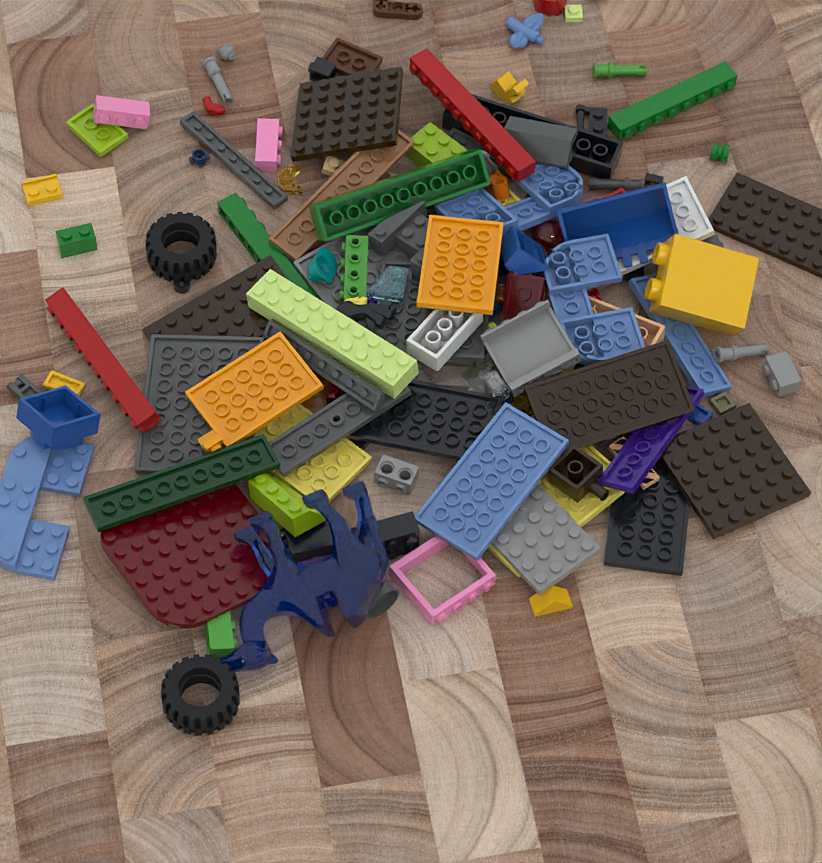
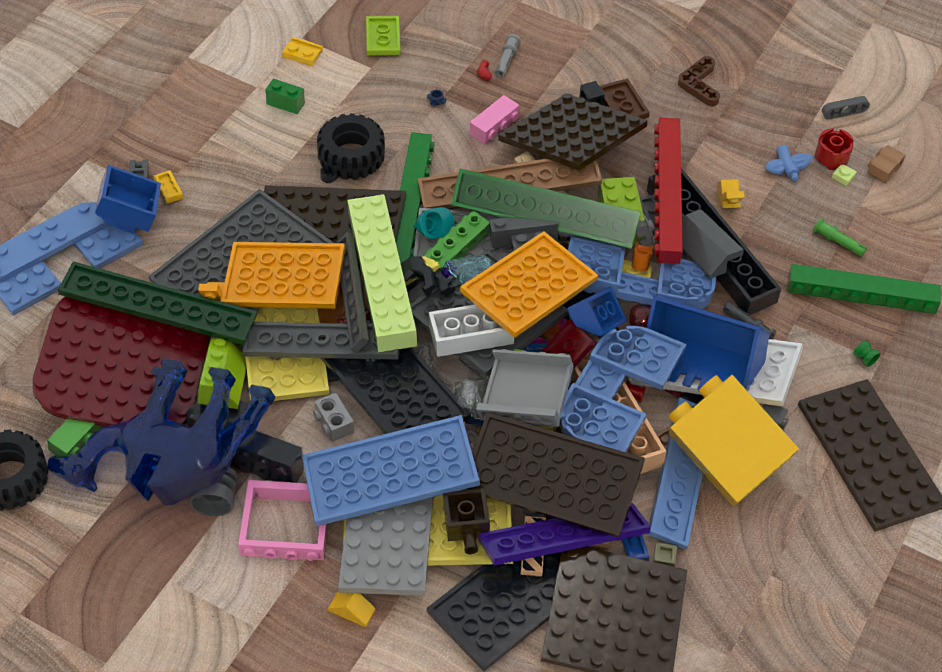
camera: 40 degrees right, 5 degrees down
(103, 360) = (207, 187): red brick -> none
(121, 112) = (409, 32): bright pink brick -> none
(227, 52) = (533, 40): light grey plate -> none
(233, 160) = (459, 115): dark grey plate -> none
(286, 180) = (485, 153): clear yellow piece -> none
(597, 118) = (781, 265): black plate -> none
(651, 179) = (782, 335): black plate -> none
(733, 352) = (713, 518): light grey pin -> none
(781, 374) = (742, 566): light grey brick -> none

